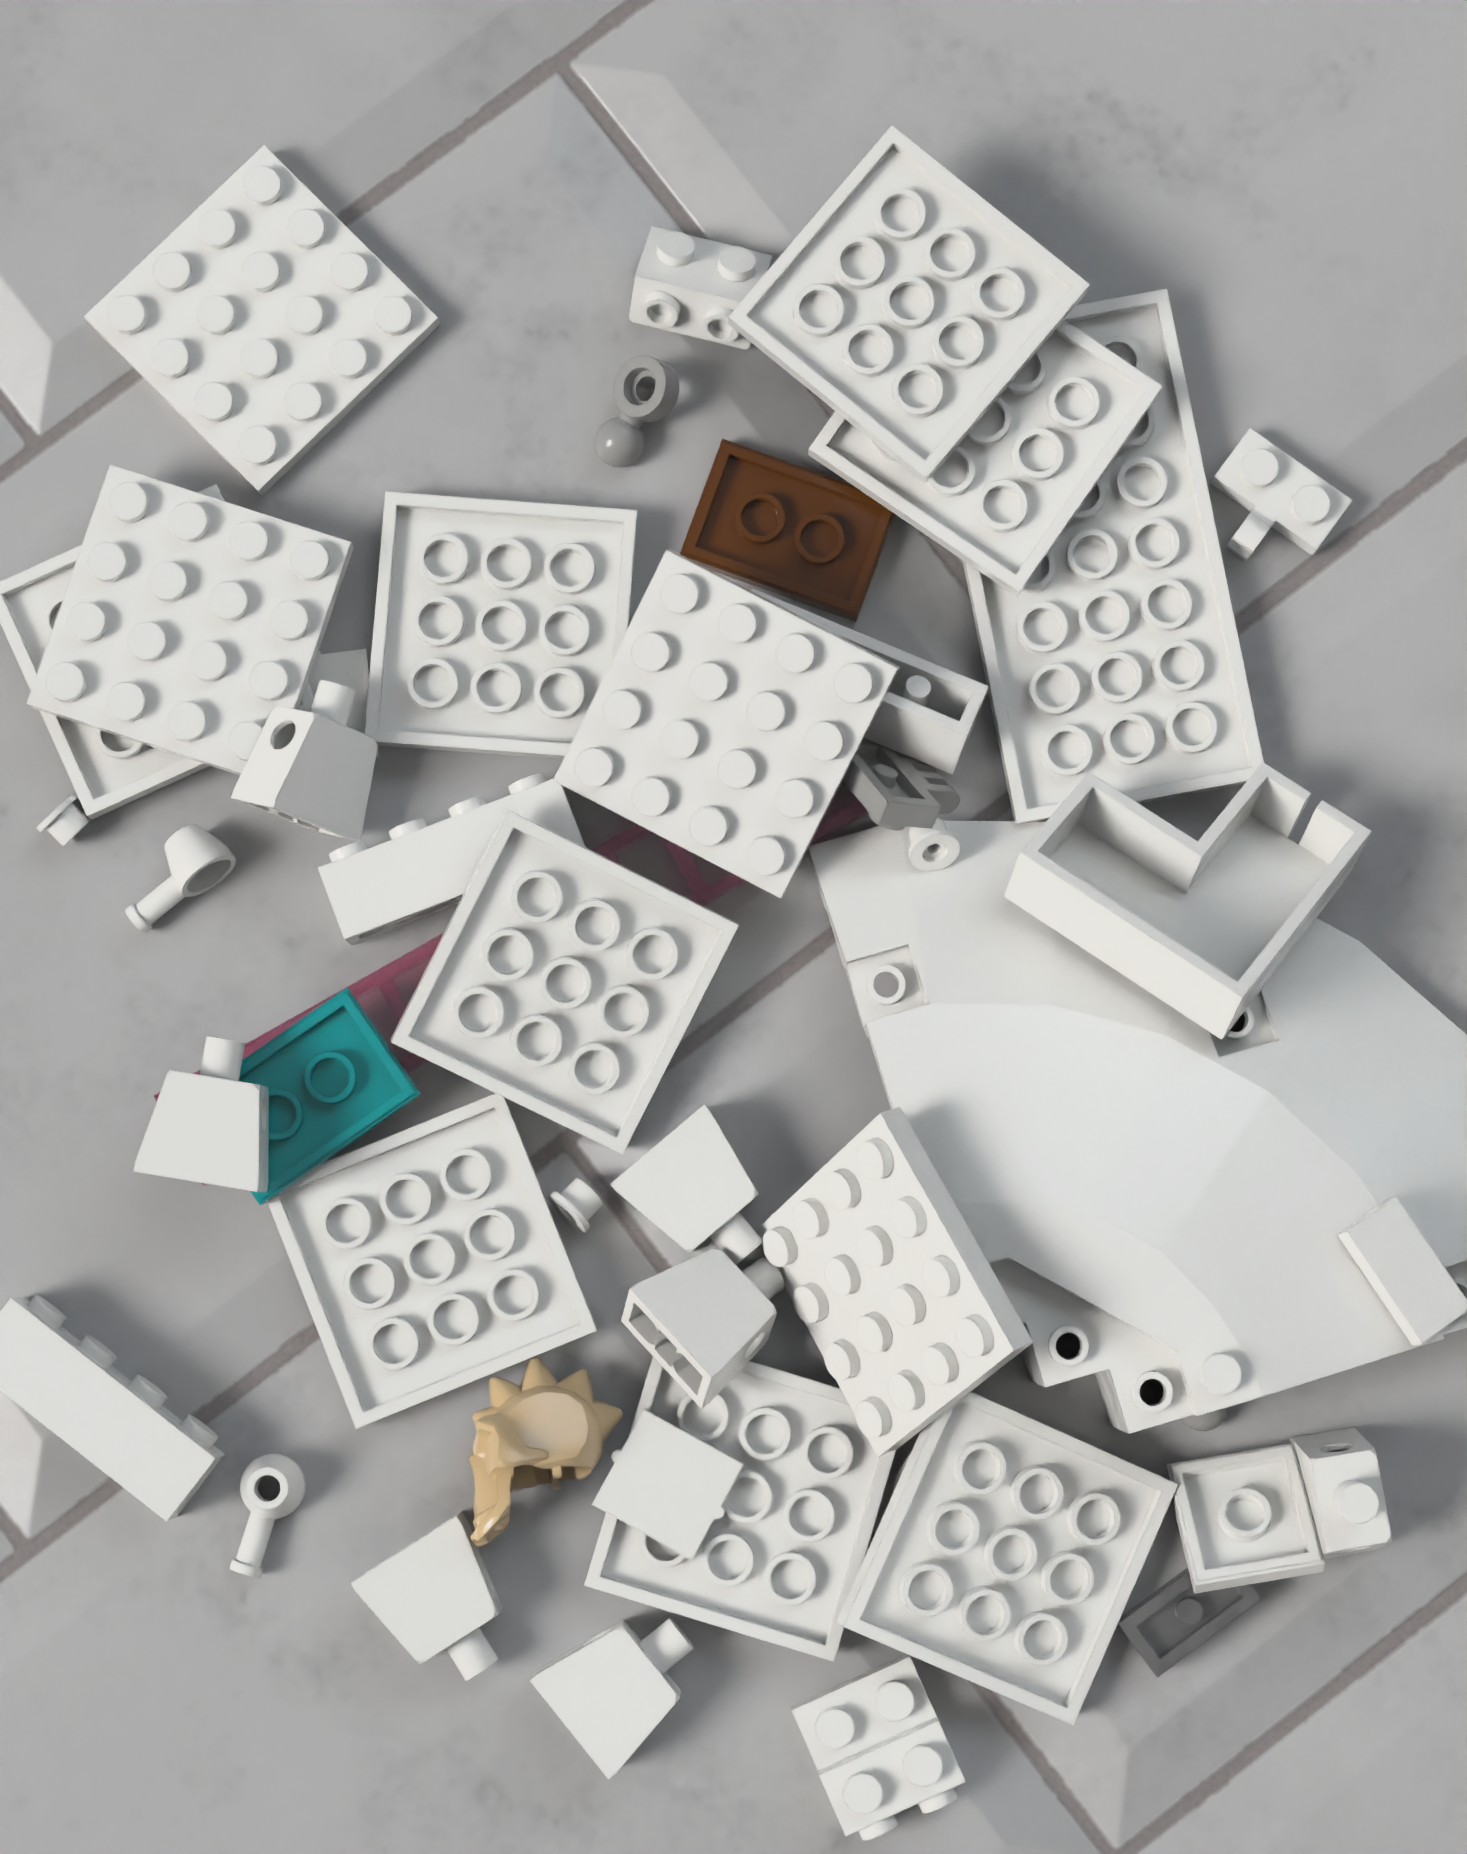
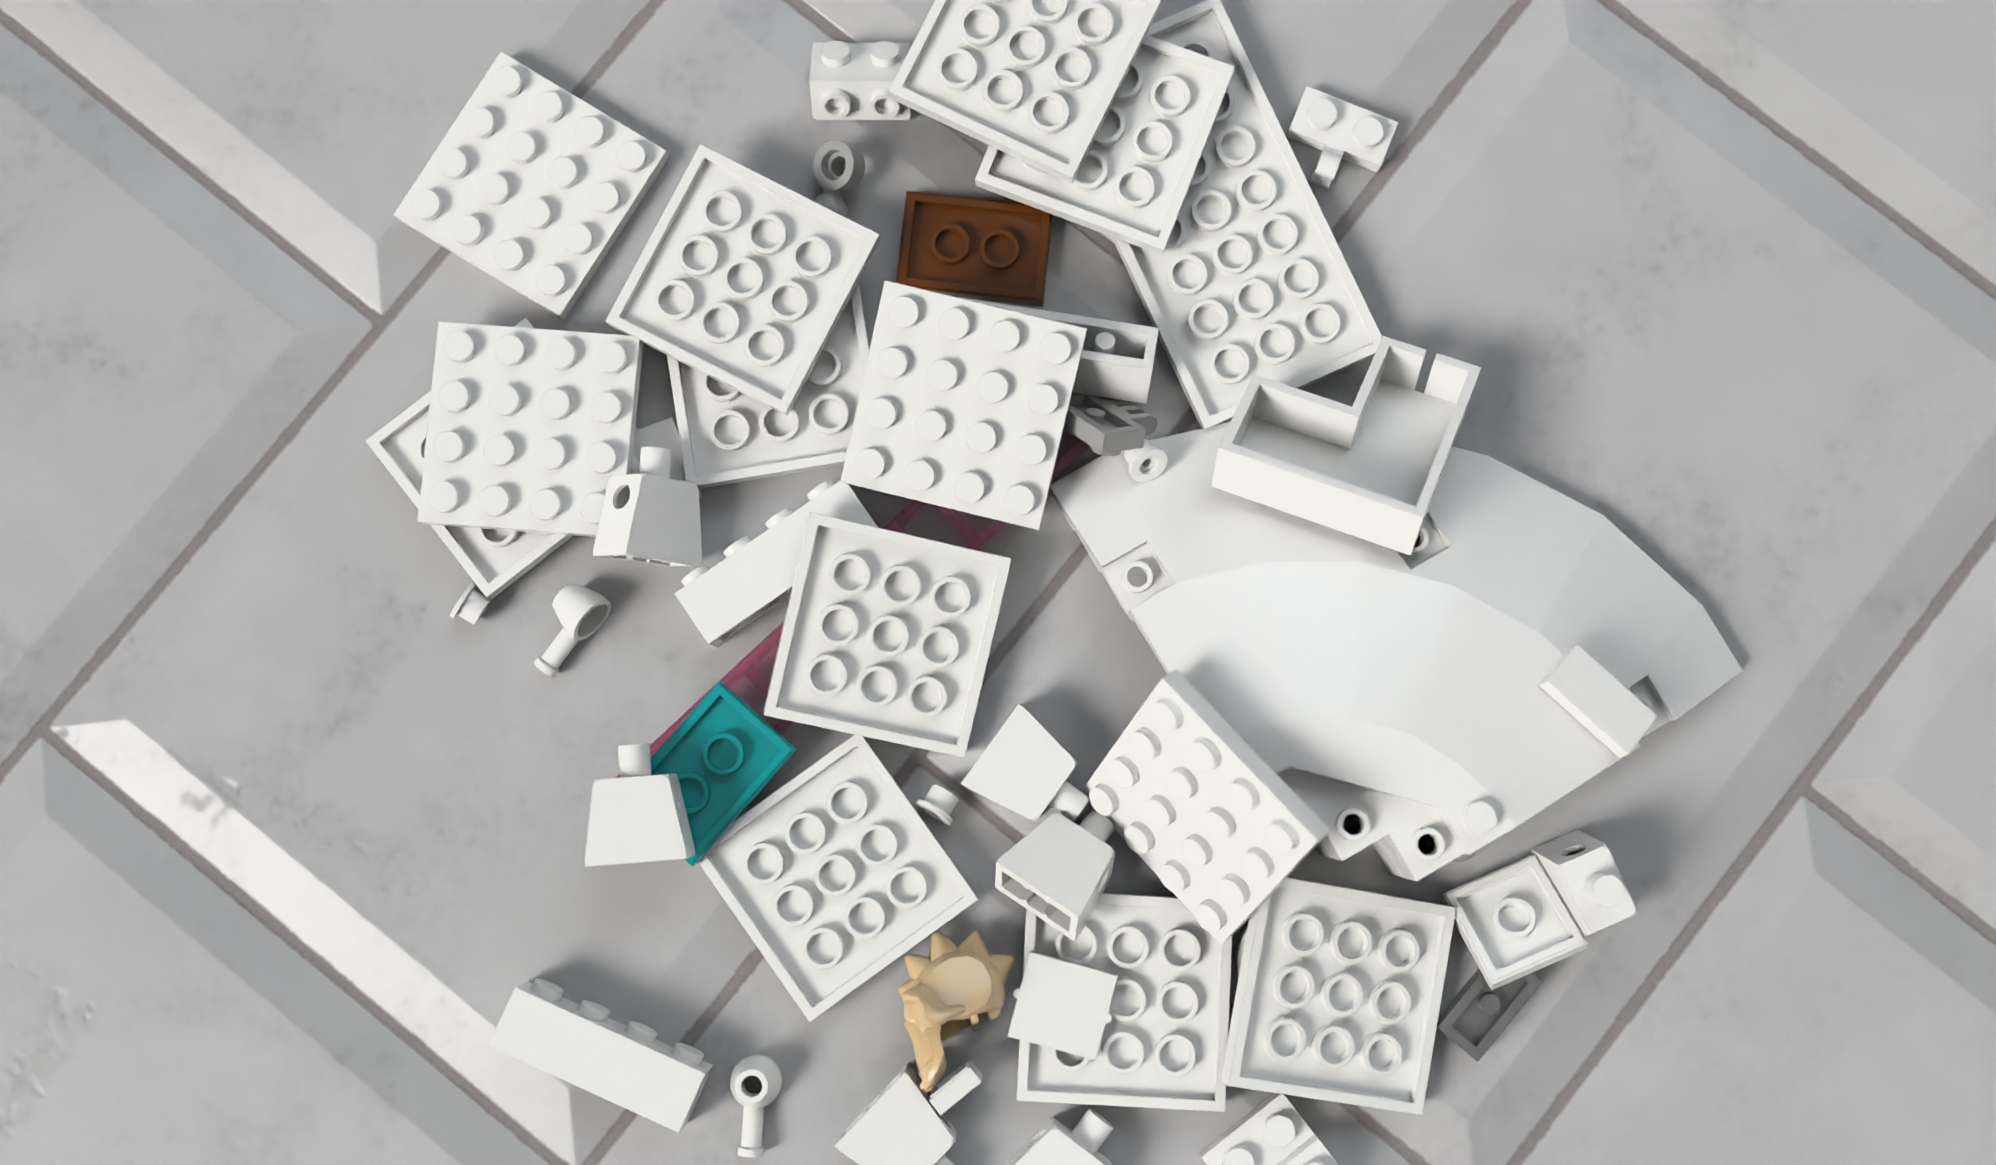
camera: 10 degrees left, 0 degrees up
(495, 503) = (743, 279): none -> white plate
(513, 1550) = (955, 1086): none -> white tile

